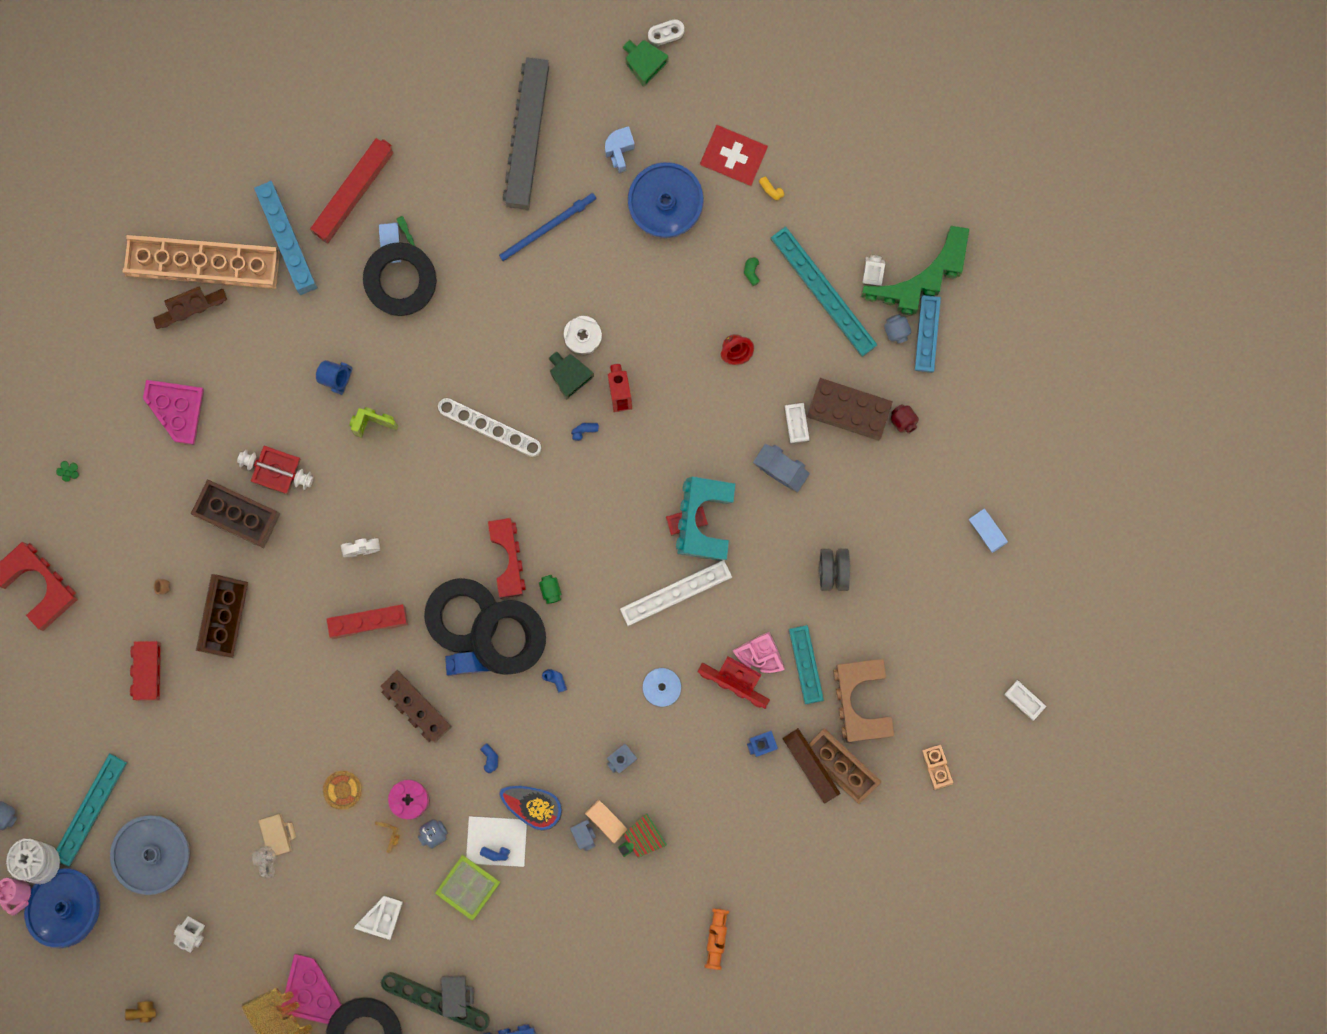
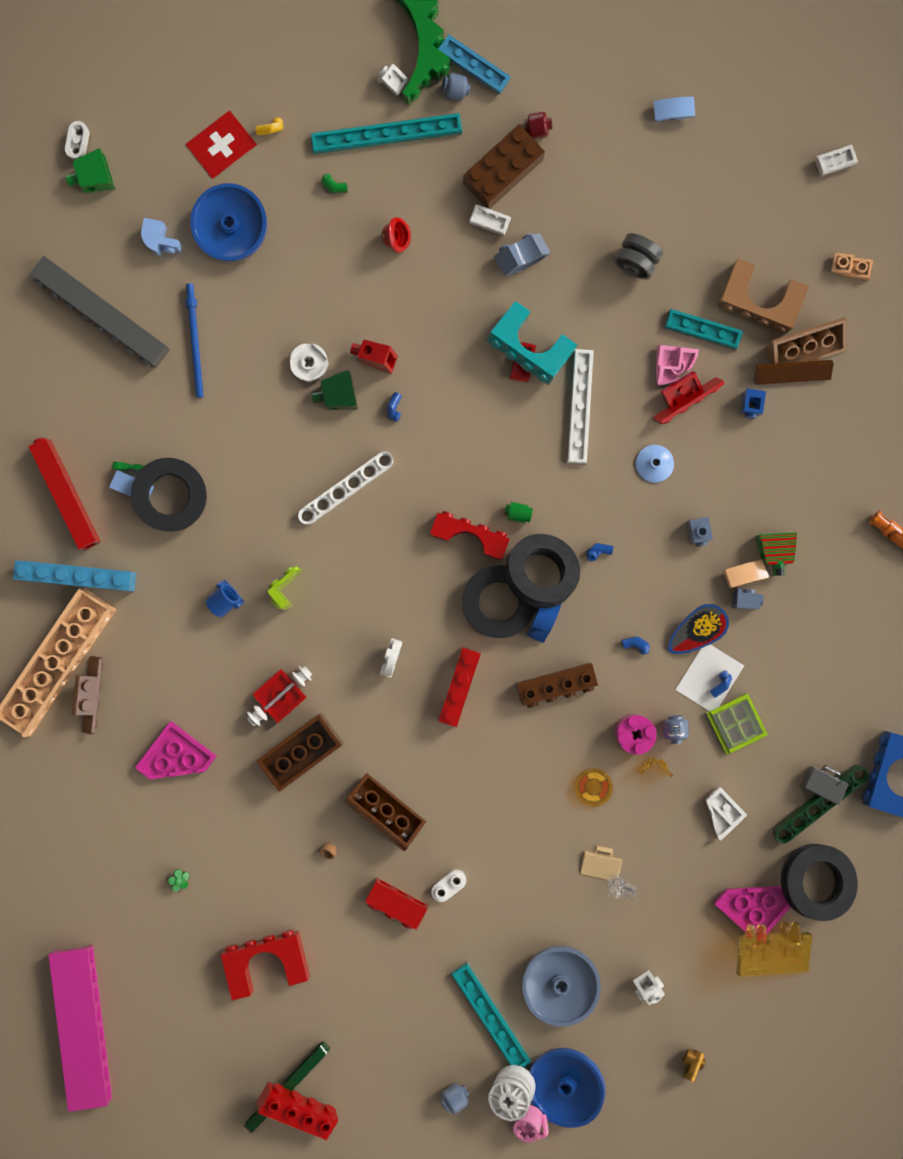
camera: 60 degrees left, 5 degrees up
(186, 708) = (447, 884): none -> white plate

